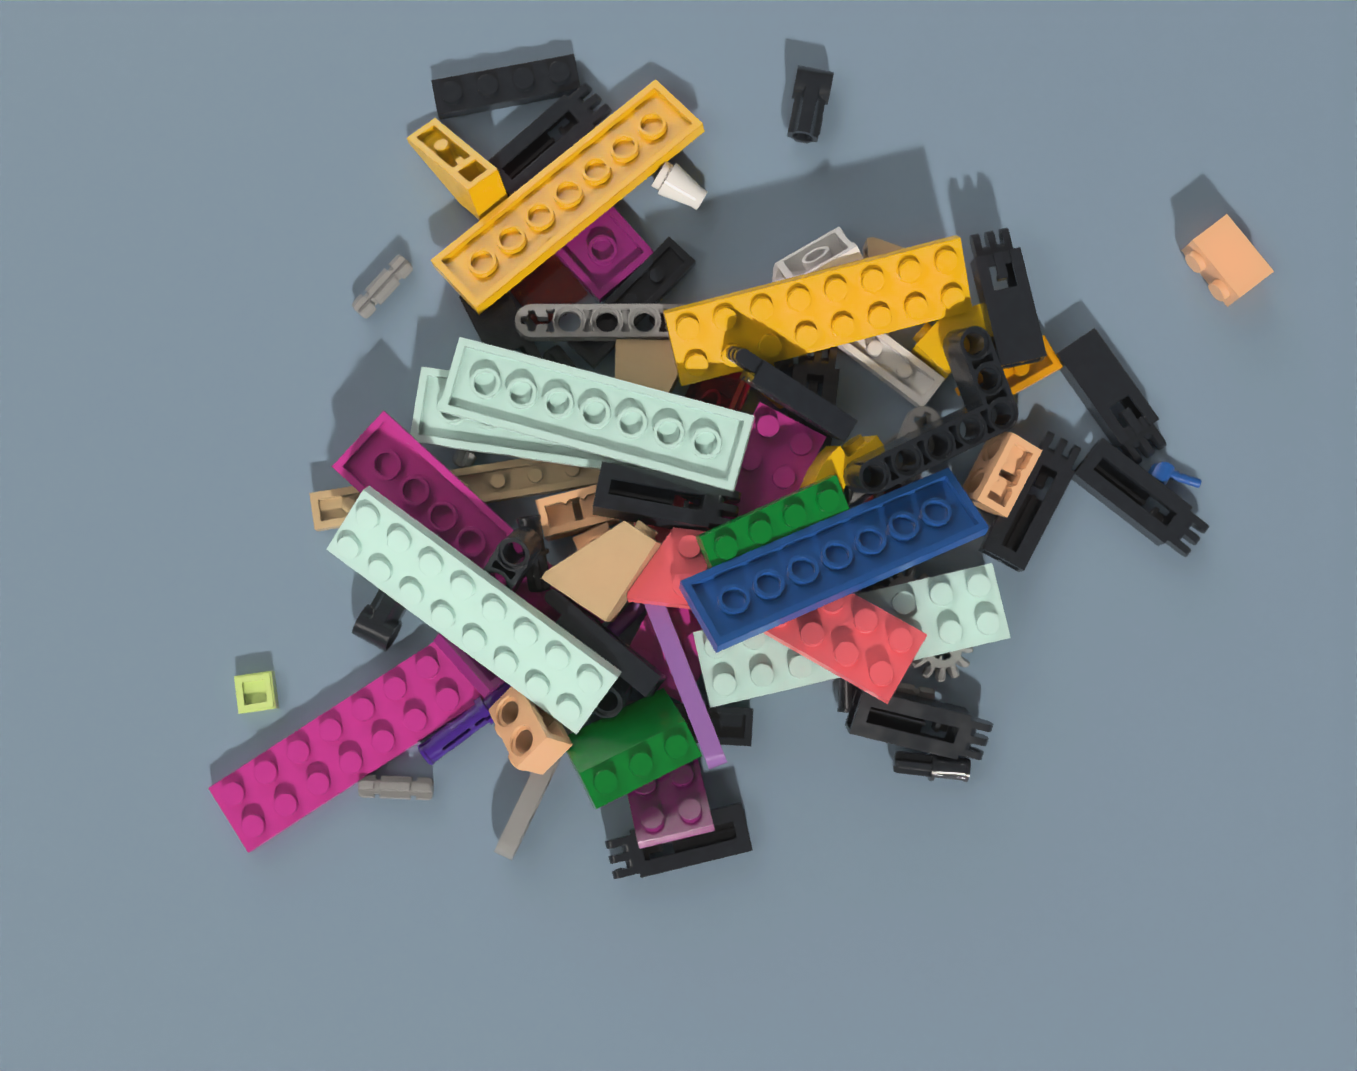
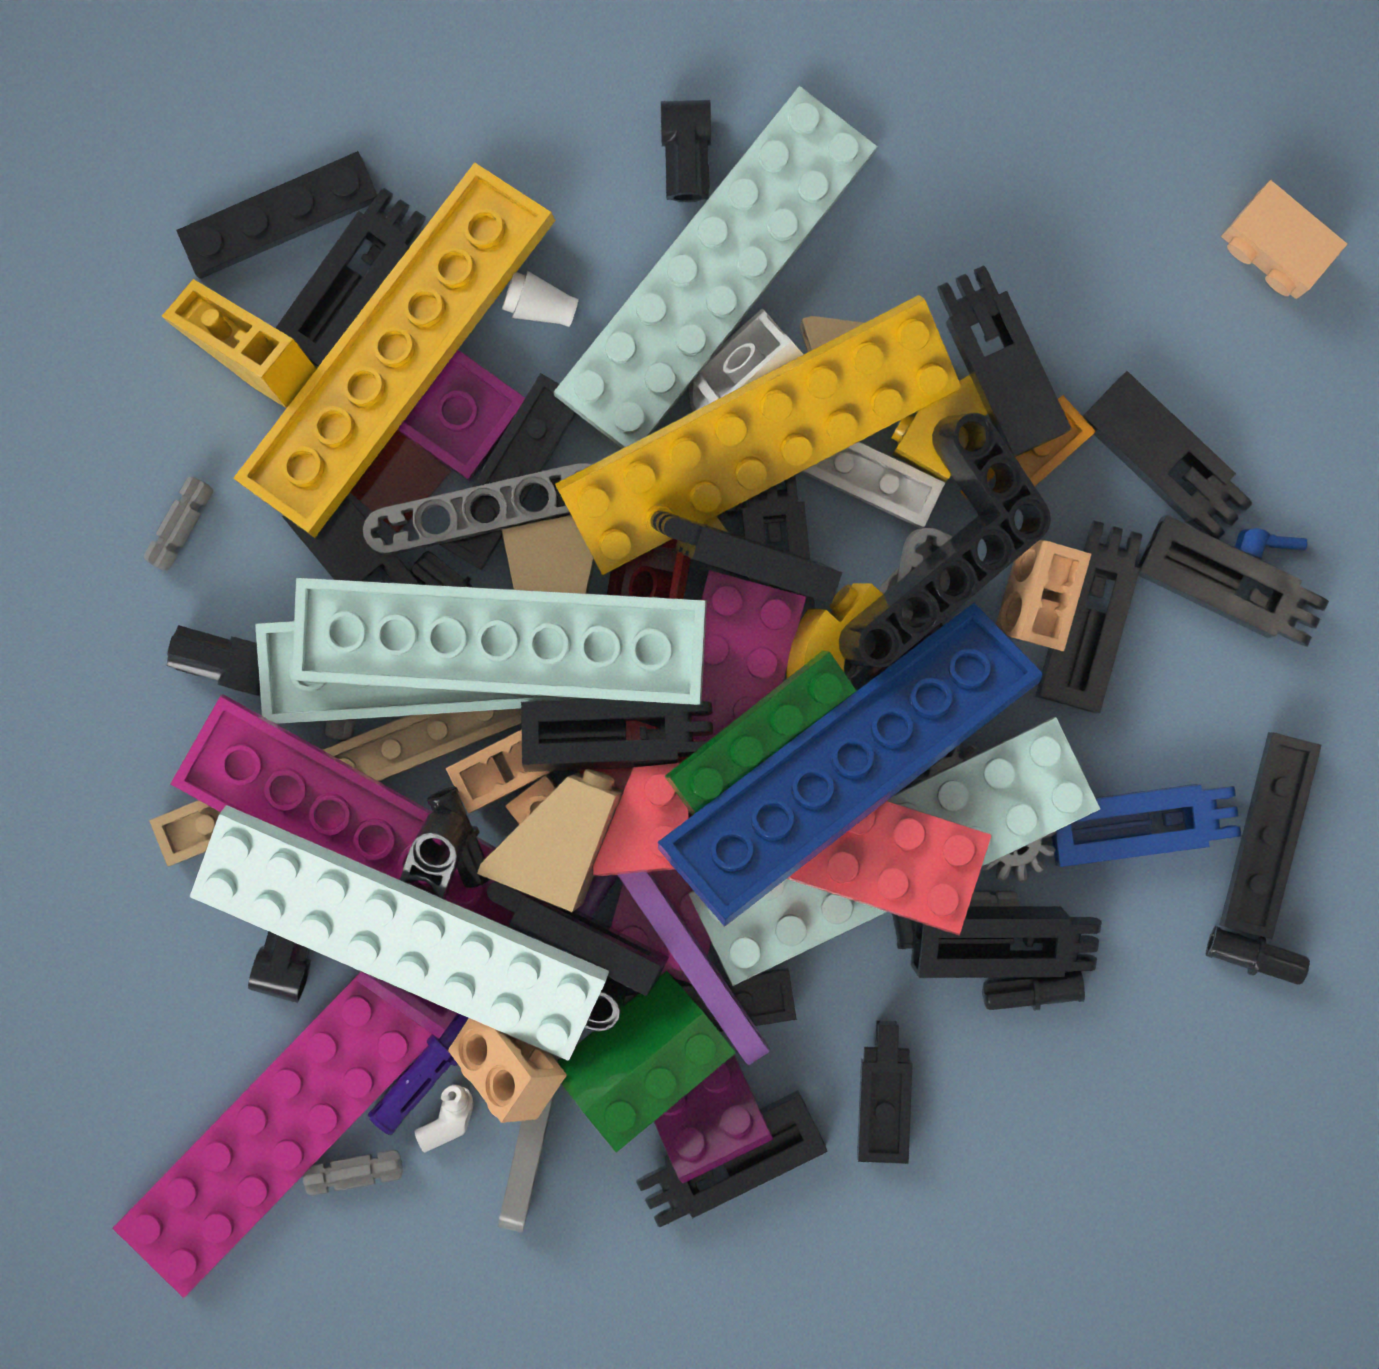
camera: 10 degrees left, 5 degrees up
(256, 692) = (143, 1091): yellowish green tile -> none
(386, 387) = (222, 659): none -> black piece
(478, 765) = (452, 1119): none -> white arm
(803, 821) = (885, 1099): none -> black hinge
(811, 192) = (715, 270): none -> light aqua plate
(1023, 661) = (1124, 825): none -> blue hinge
(1104, 777) = (1257, 956): none -> black axle
(1131, 689) = (1270, 835): none -> black plate

